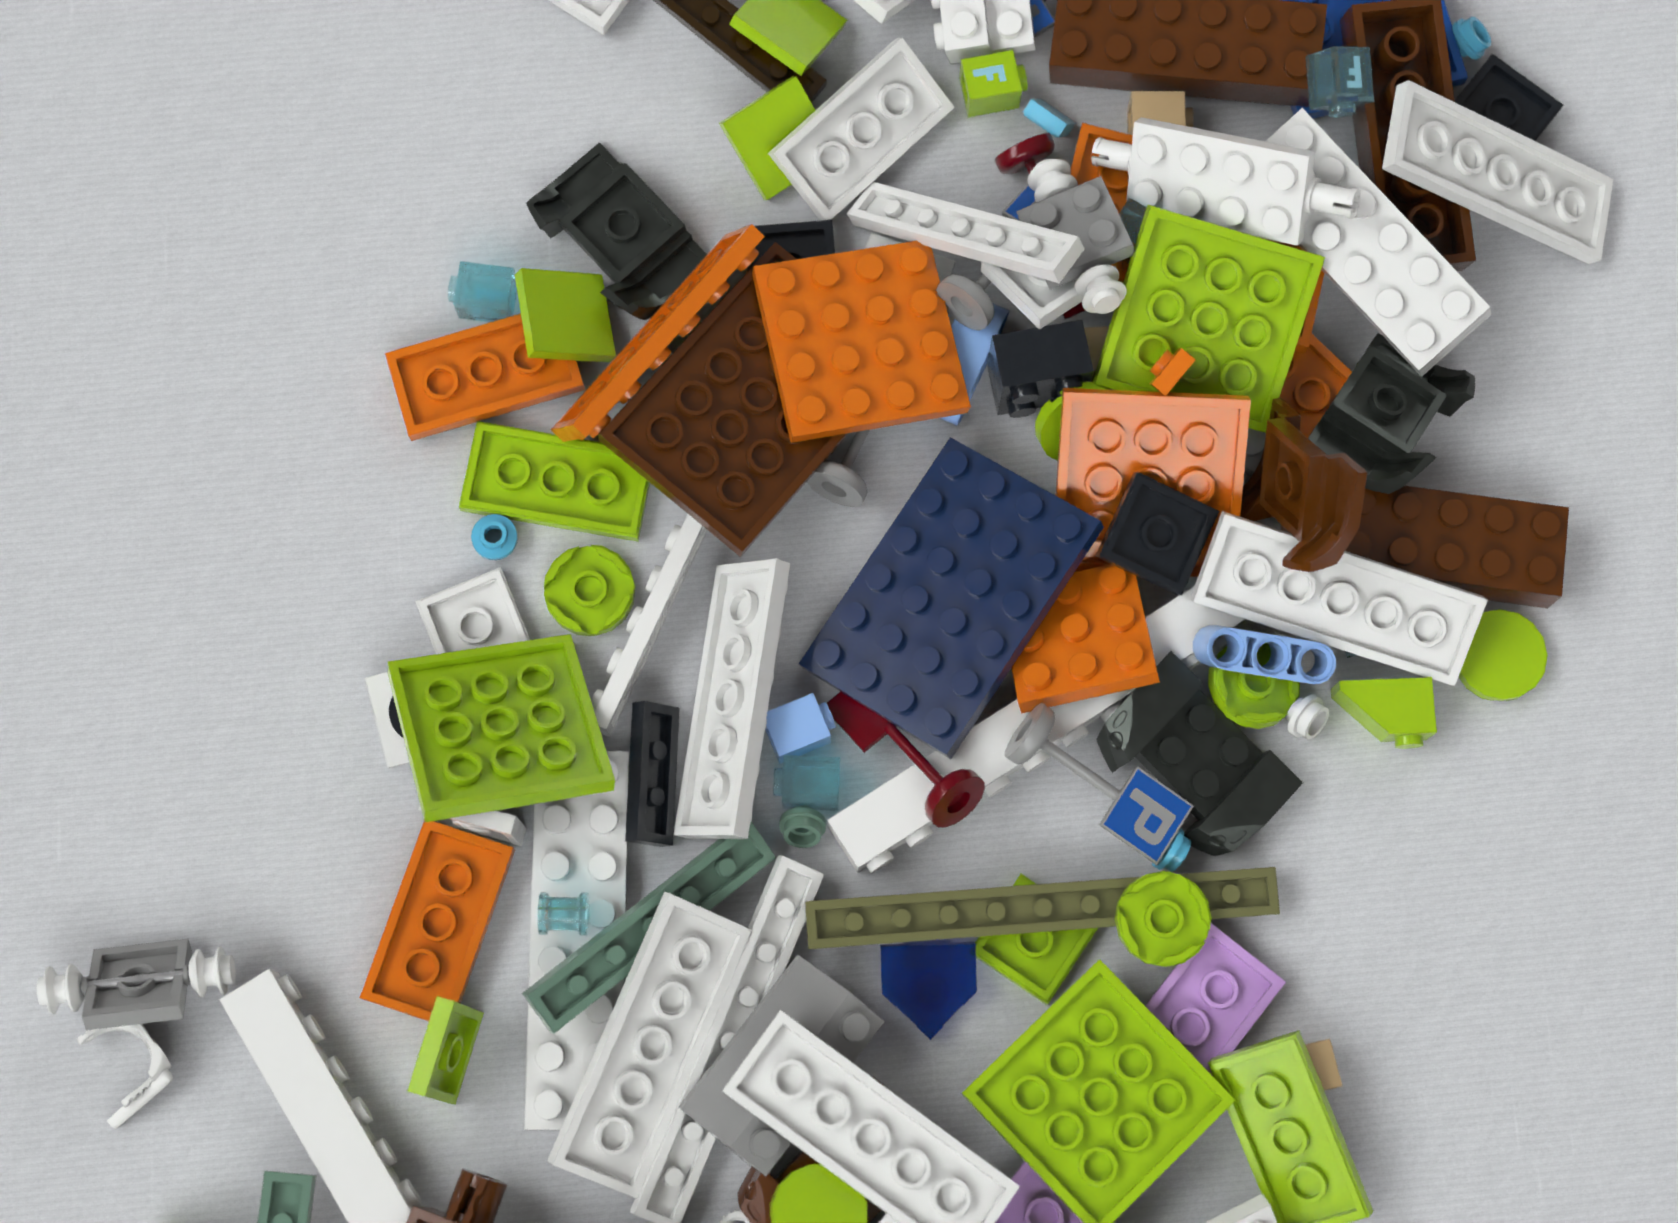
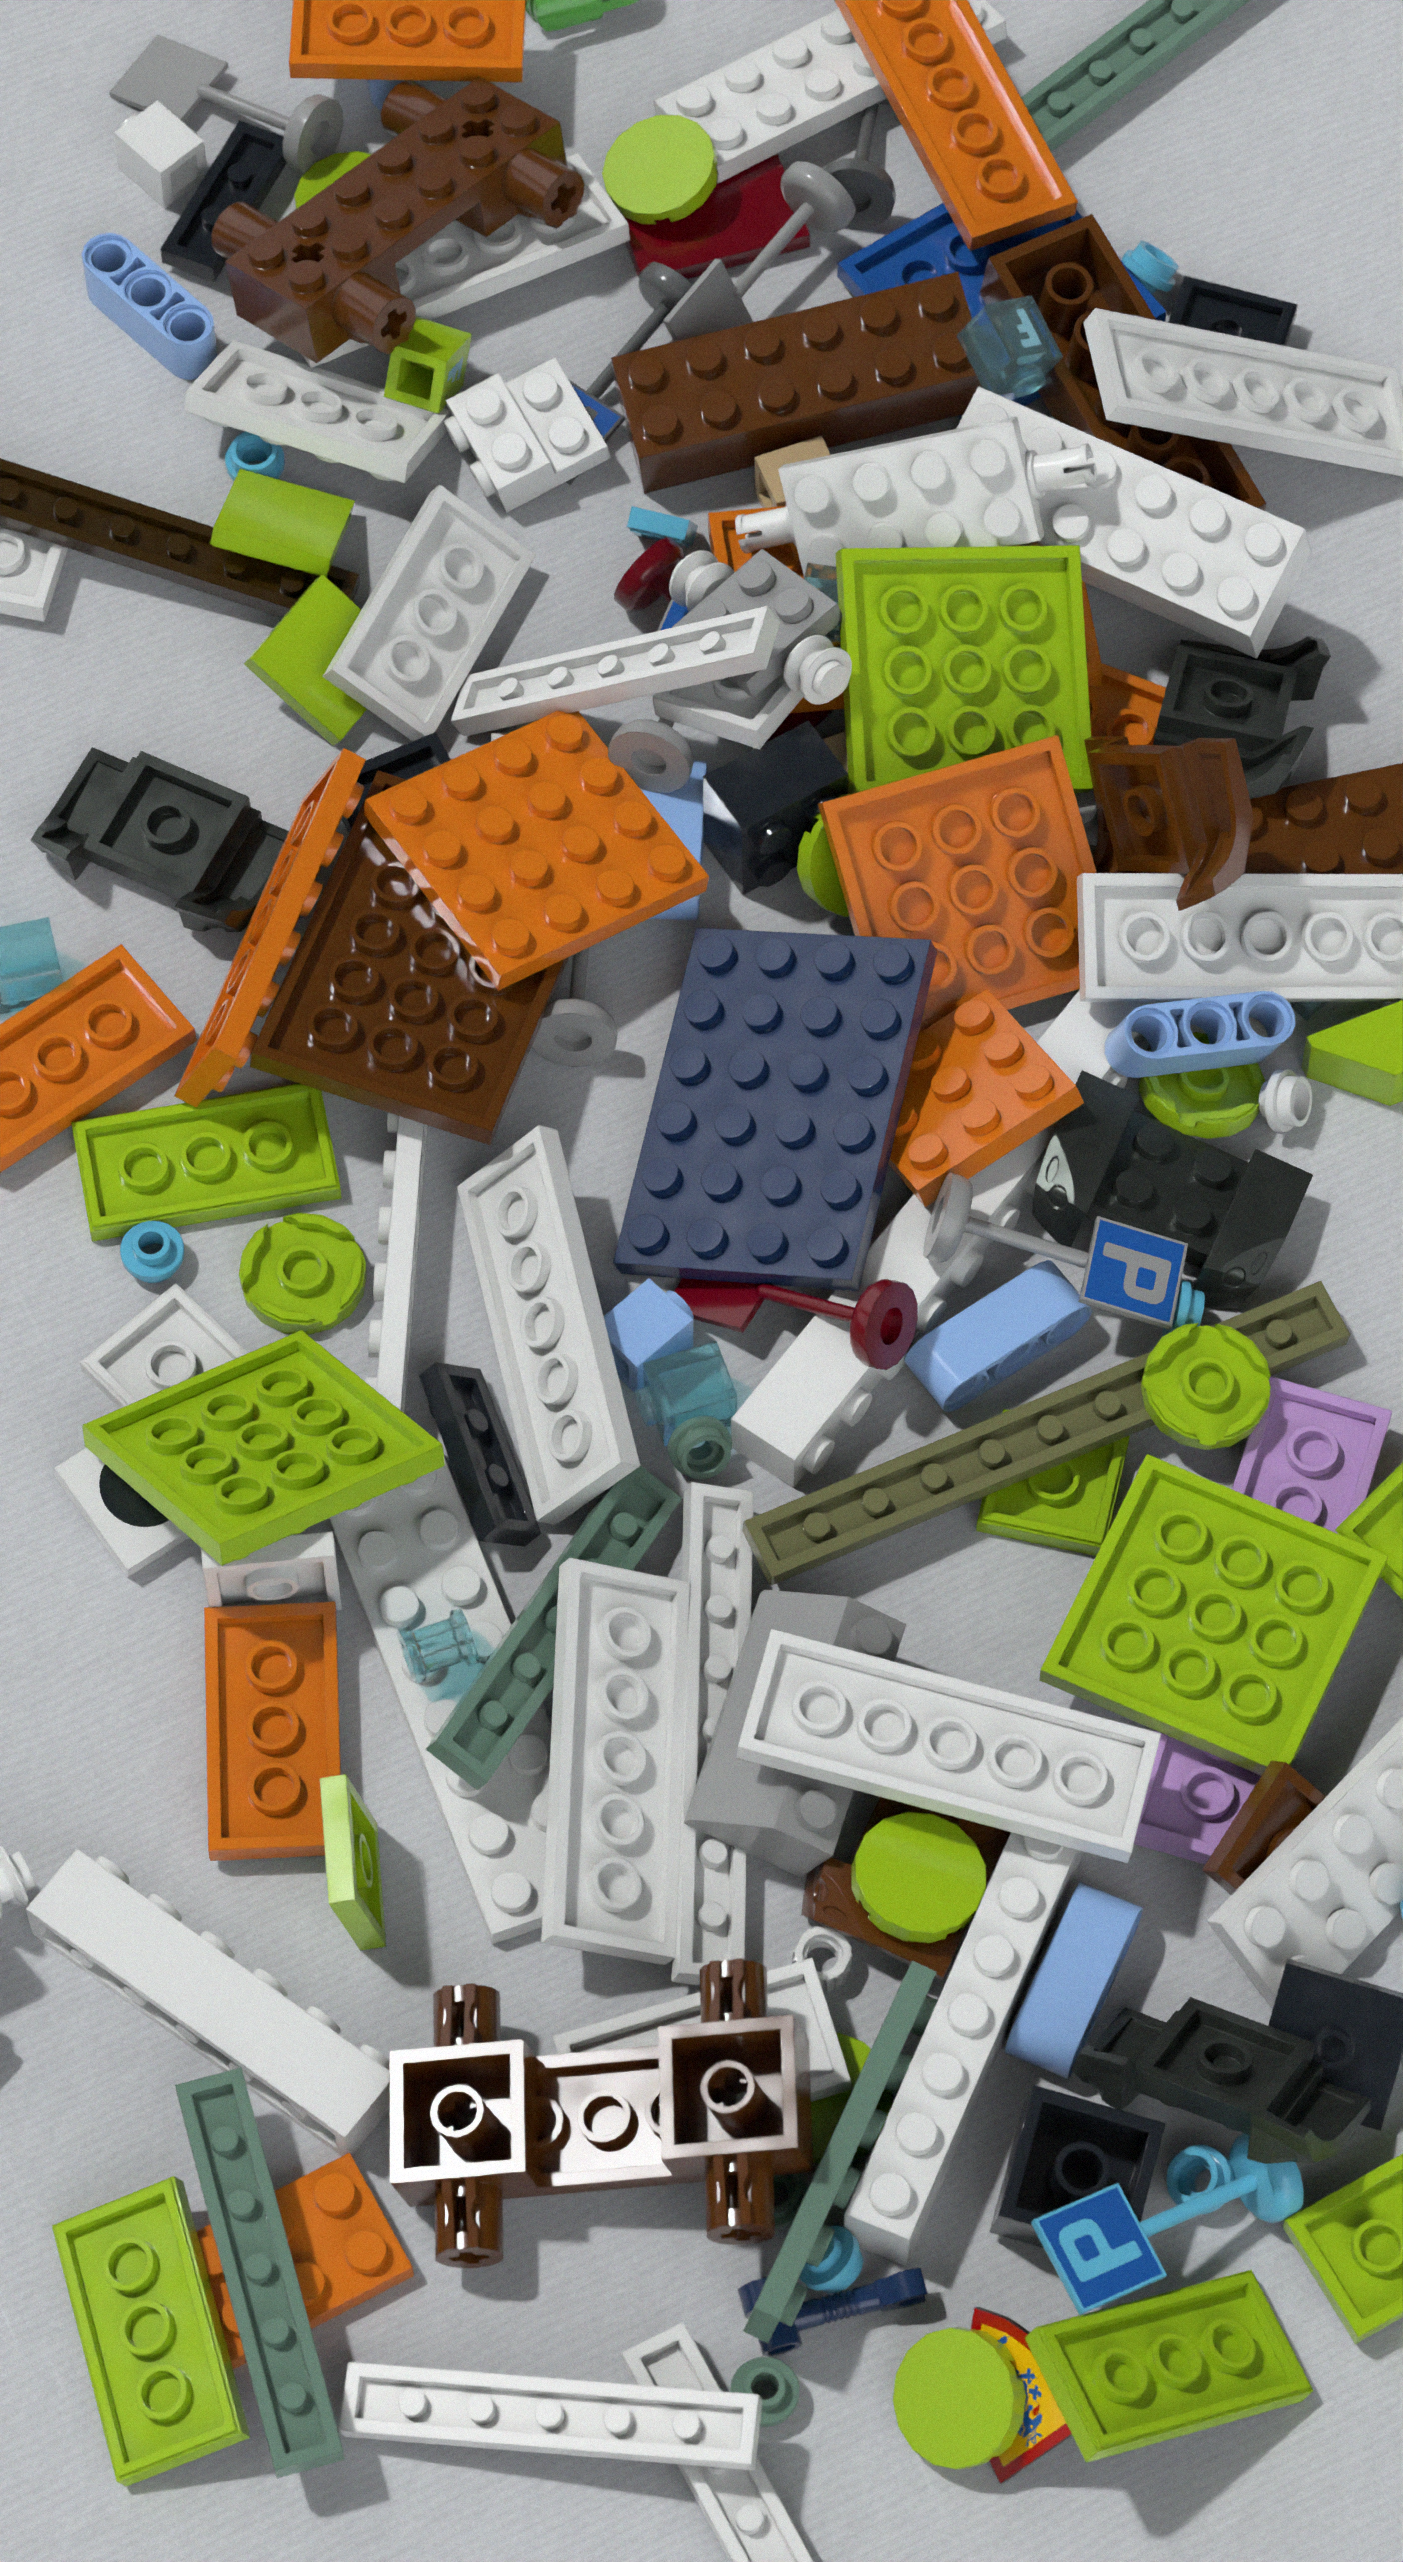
camera: 20 degrees left, 15 degrees down
(564, 315) = (138, 952): lime tile -> none
(928, 980) = (940, 1571): clear blue plate -> none
(992, 83) = (571, 511): lime brick -> none
(1036, 819) = (997, 1336): none -> light blue beam
(1157, 533) = (1007, 940): black plate -> none
(1170, 369) = (943, 735): orange plate -> none

